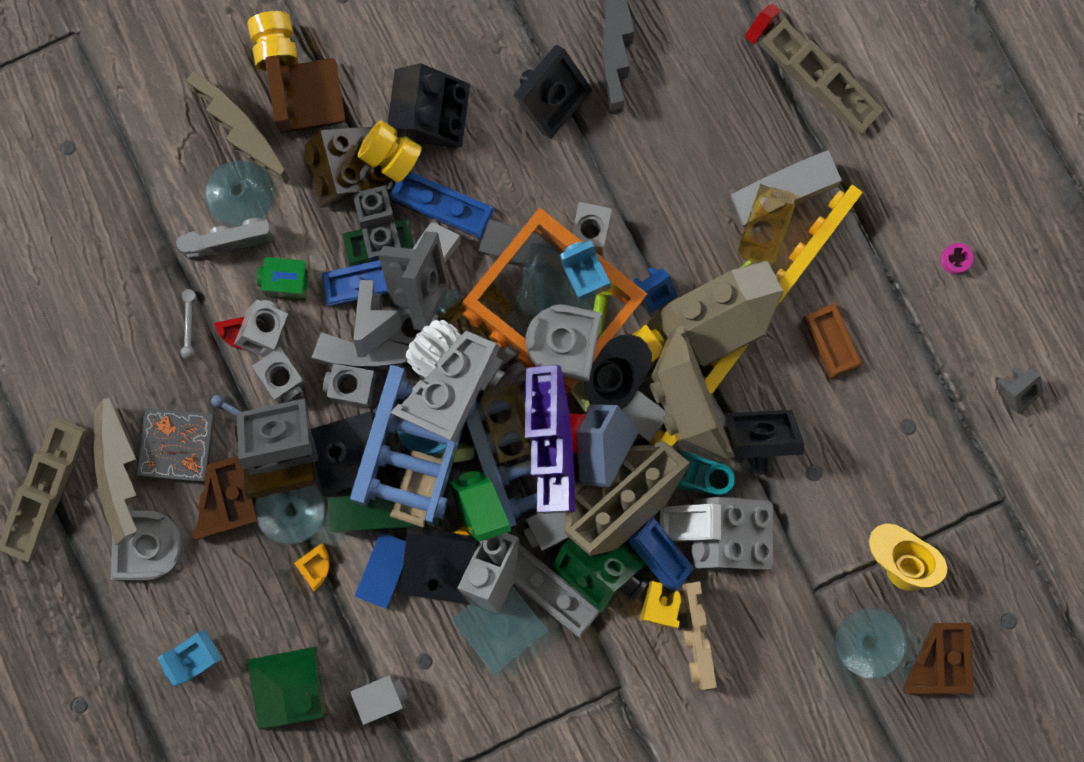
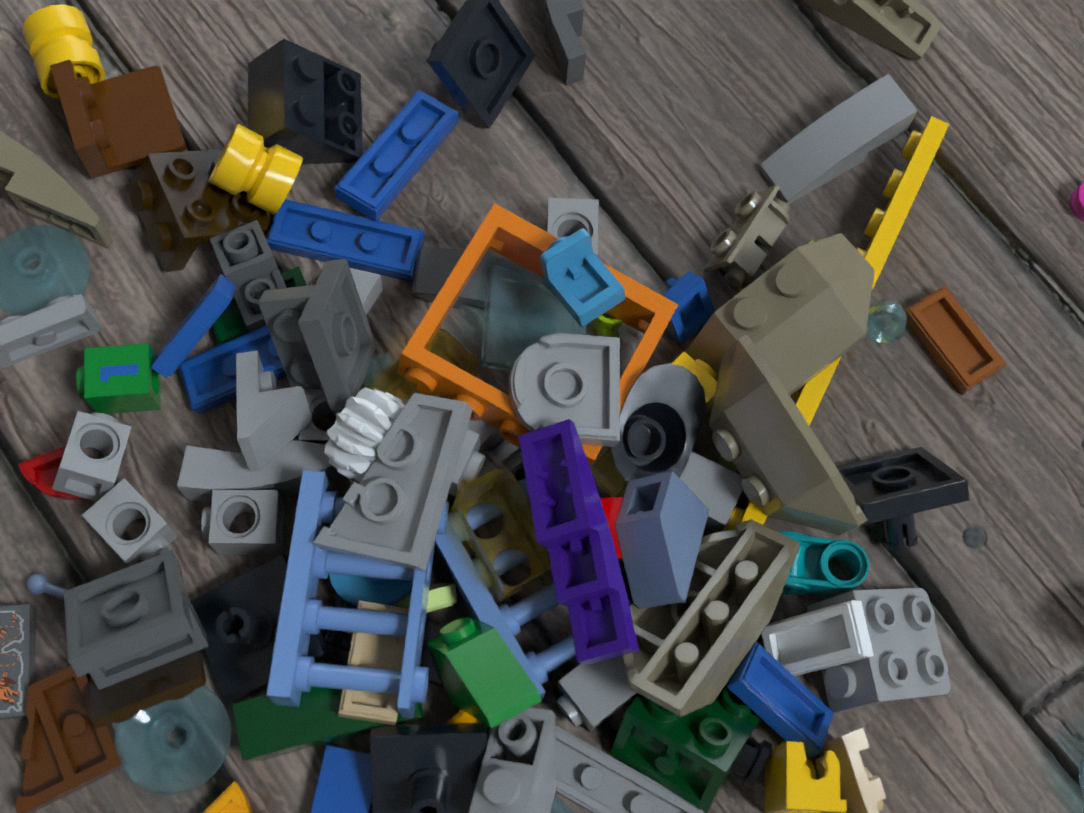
camera: 15 degrees left, 10 degrees down
(335, 253) = (194, 326): none -> blue tile
(485, 149) = (396, 155): none -> blue tile
(719, 236) = (735, 247): none -> dark tan hinge
(760, 252) = (850, 172): clear yellow piece -> none
(785, 327) = (885, 334): none -> clear light blue hinge

